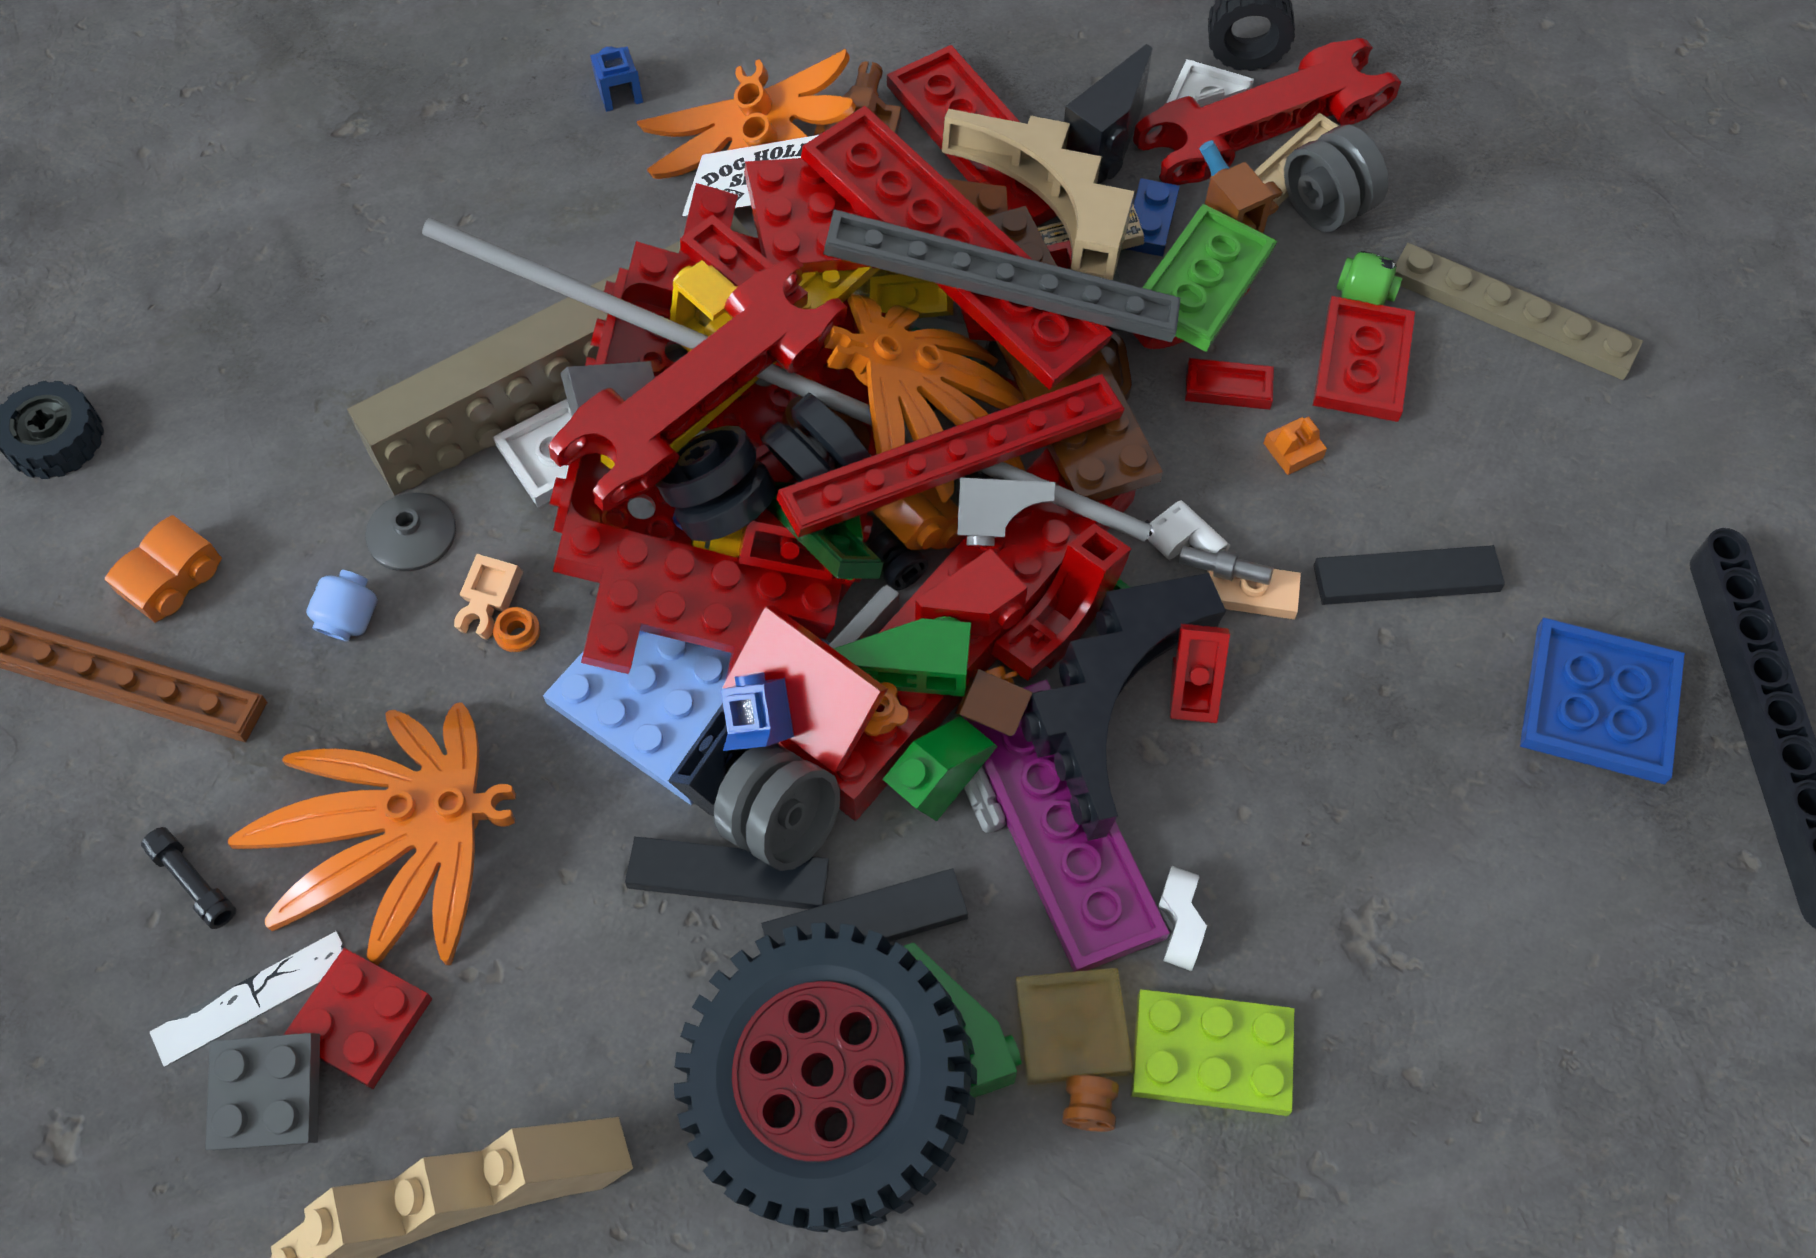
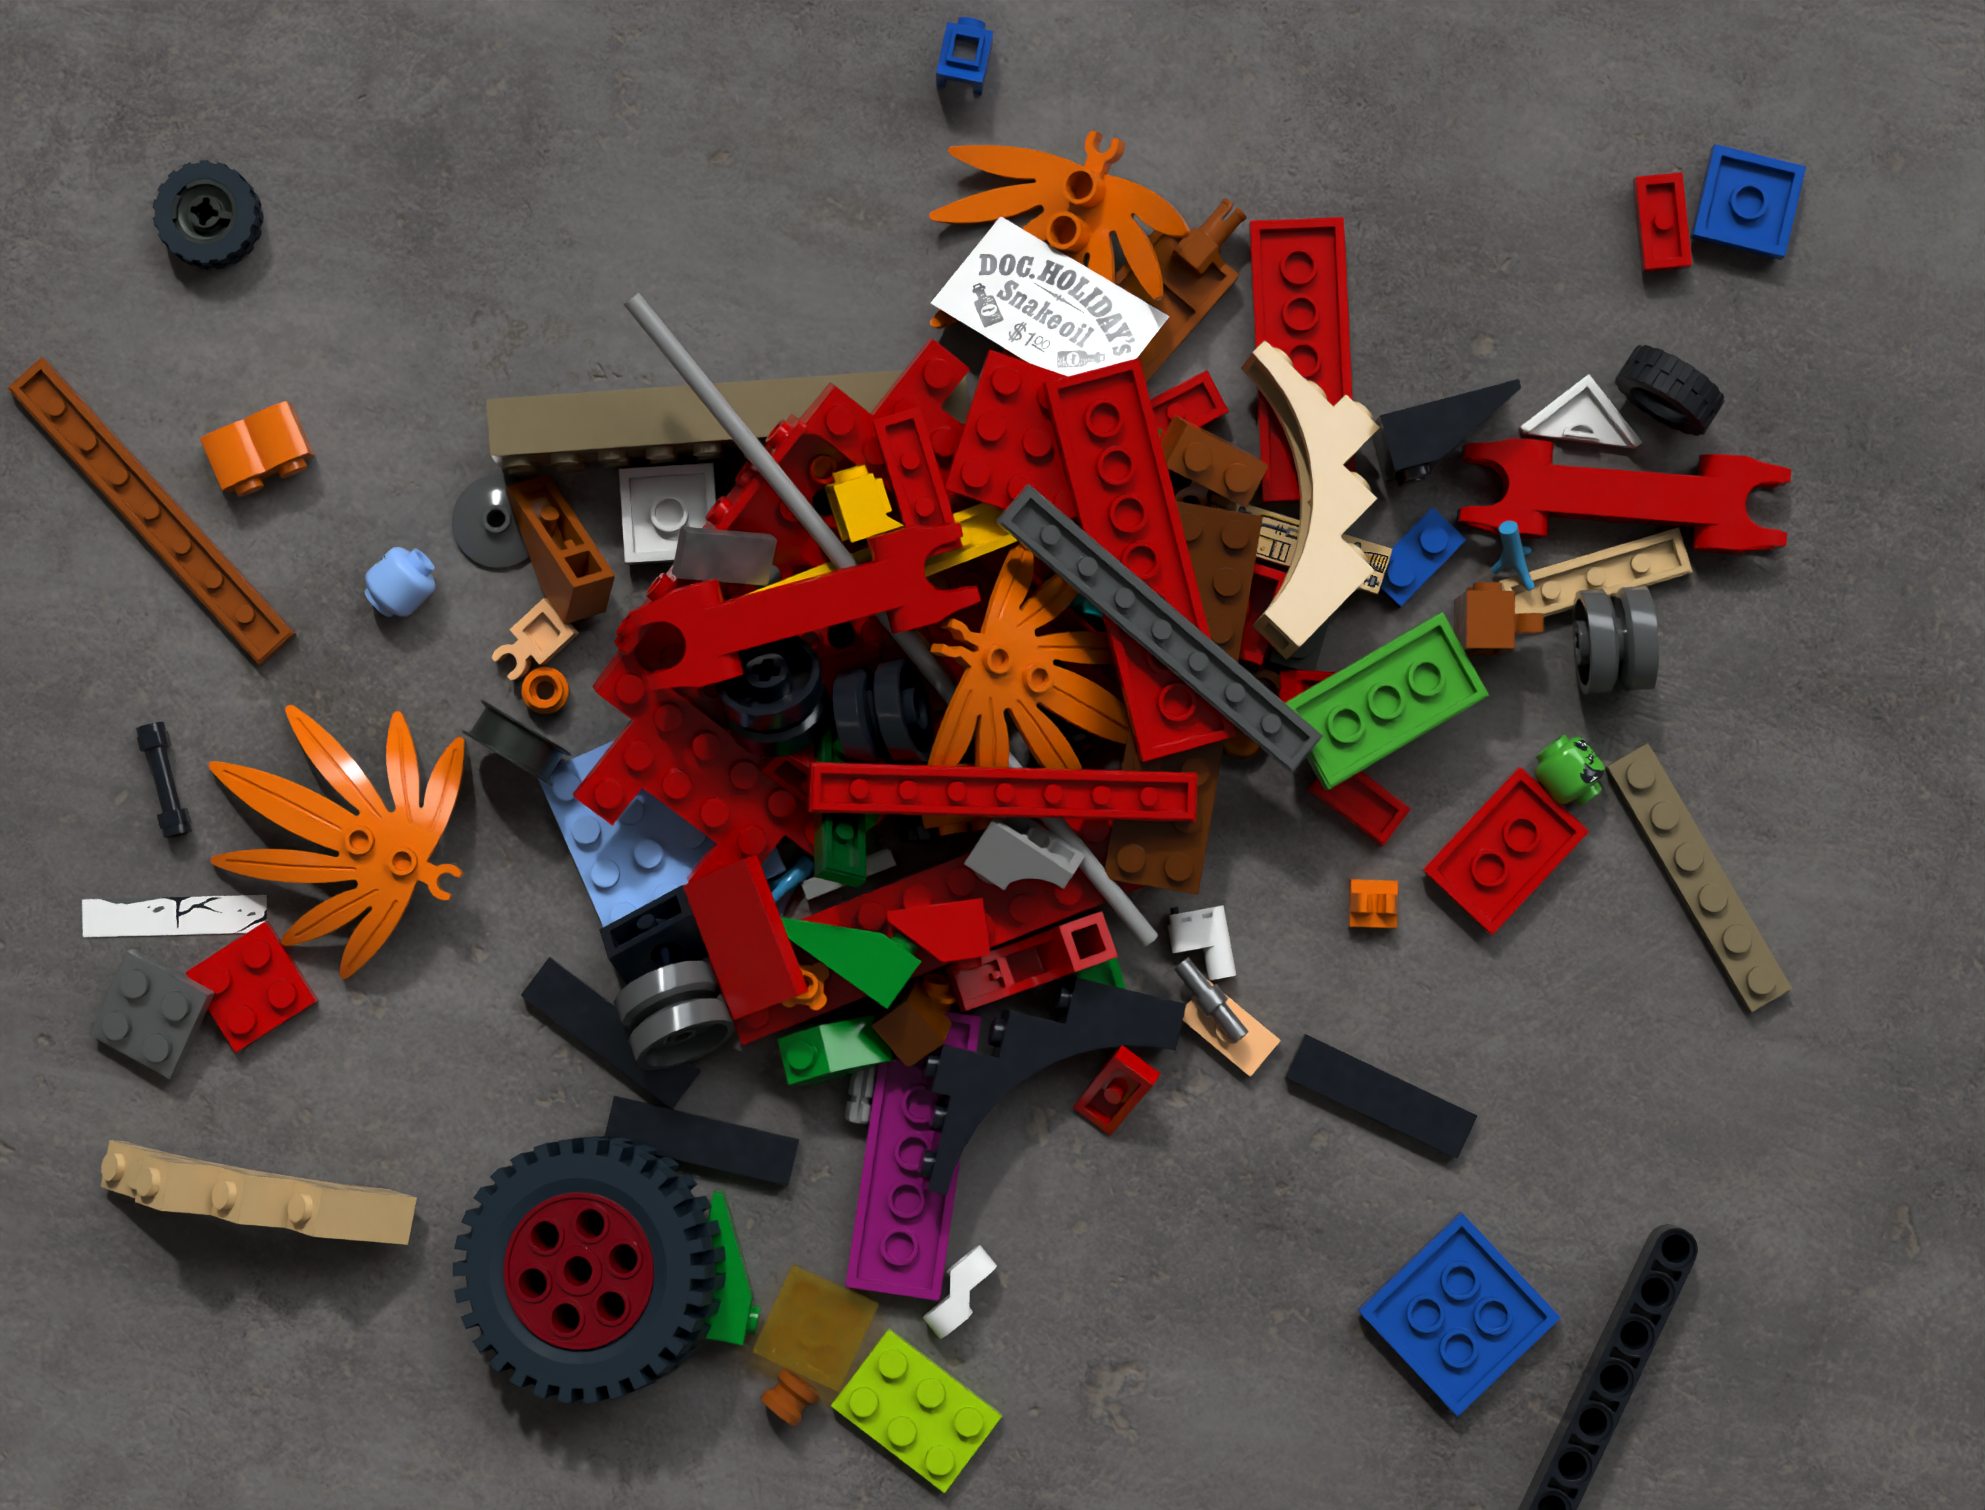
camera: 25 degrees right, 25 degrees up
(478, 516) = (561, 550): none -> dark orange slope
(509, 663) = (517, 742): none -> pearl dark grey wheel
(756, 712) = (691, 939): blue window -> none

